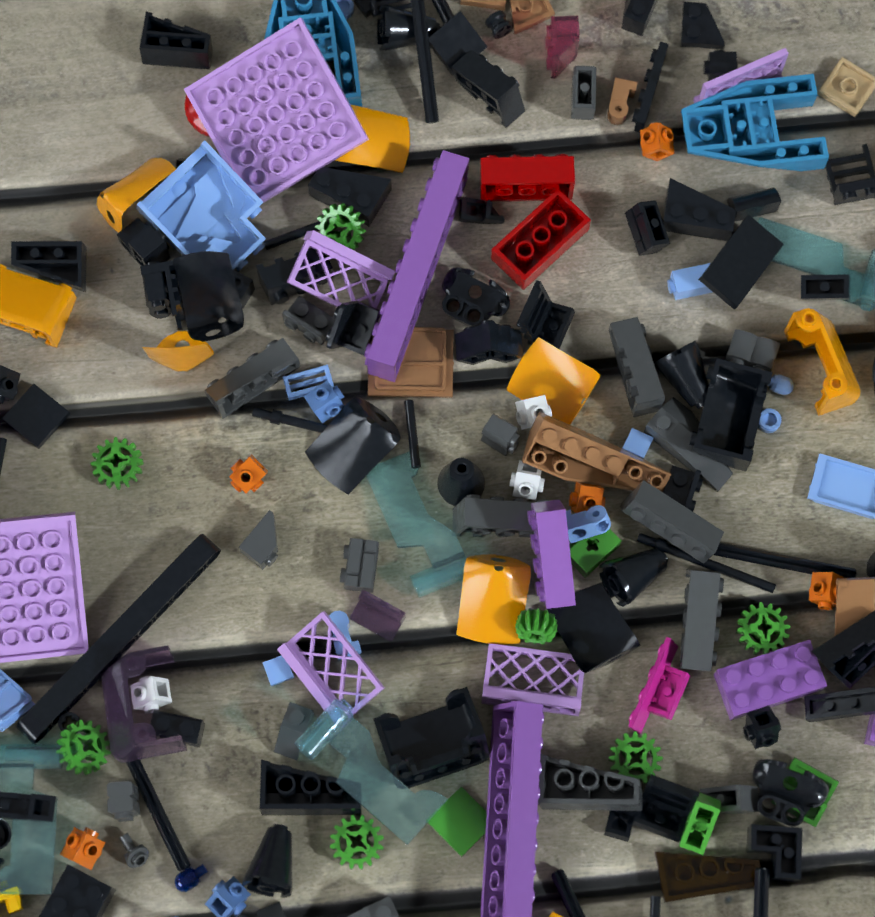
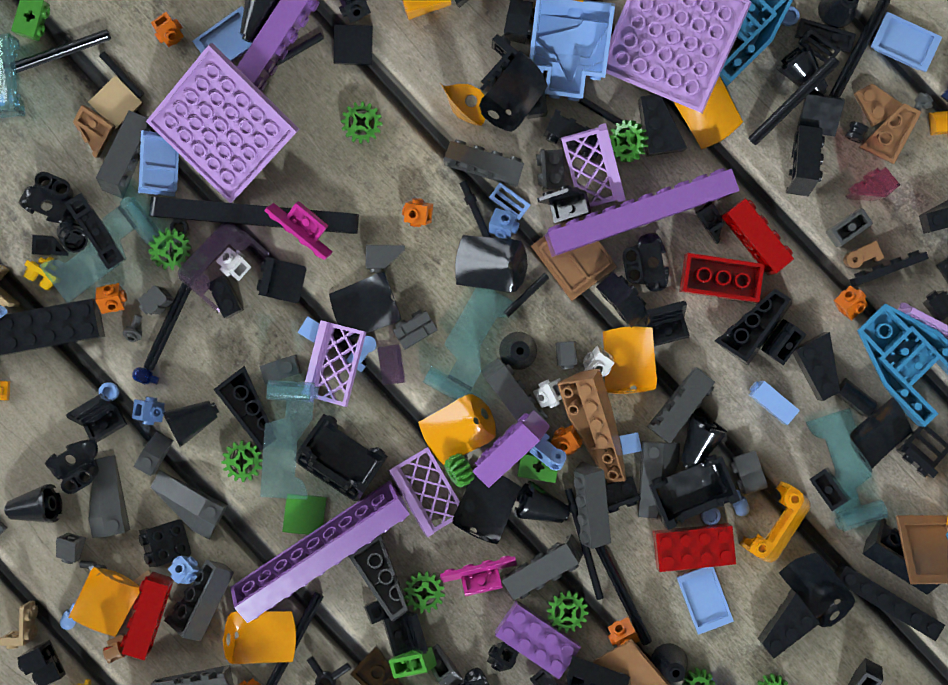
camera: 55 degrees right, 15 degrees up
(157, 295) = (489, 58): black brick -> none
(170, 589) = (302, 225): none -> dark pink bracket
(206, 659) = (281, 280): none -> black bracket
(297, 594) = (365, 305): none -> black piece
(614, 250) = (753, 329): none -> black wedge
(741, 262) = (805, 421): black tile -> none
(789, 457) = (694, 547): none -> red brick
(805, 205) = (880, 433): none -> black piece

